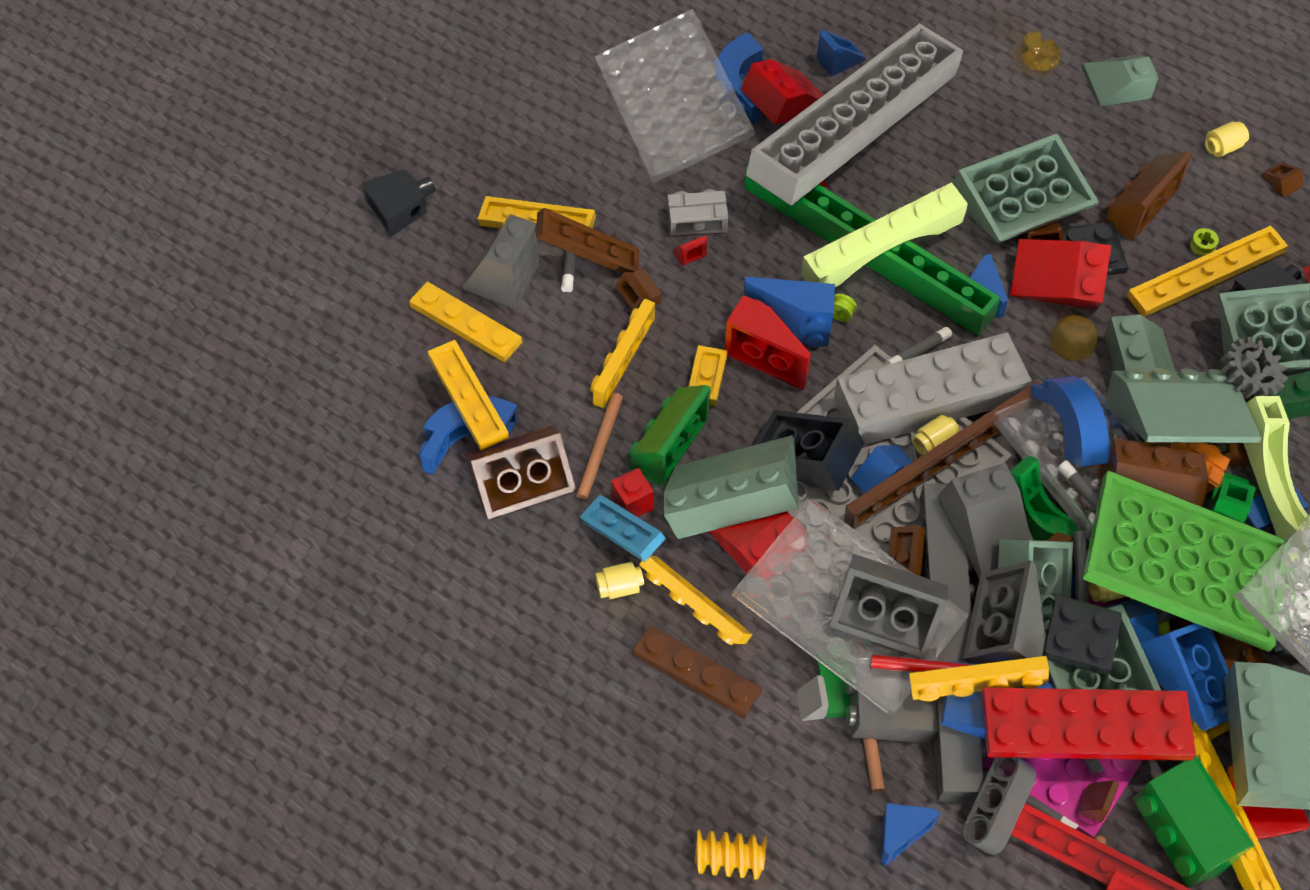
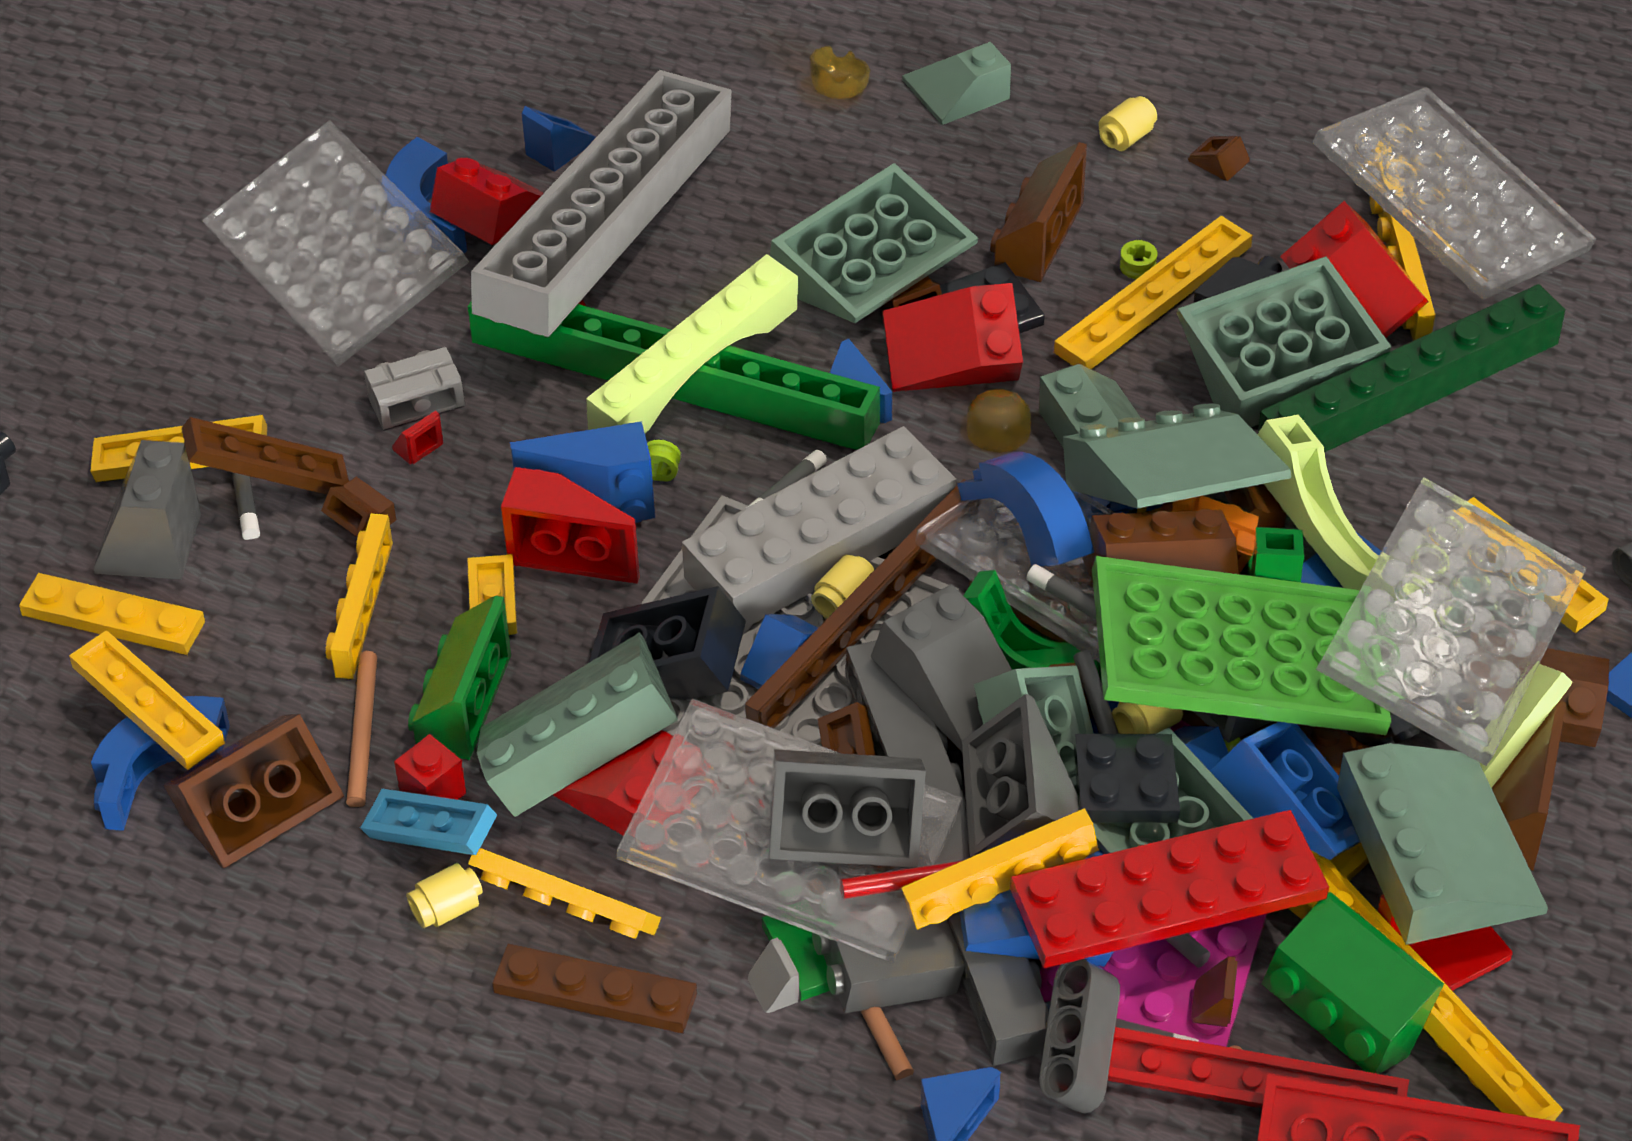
camera: 15 degrees left, 10 degrees down
(1253, 368) = (1252, 387): dark grey gear -> none

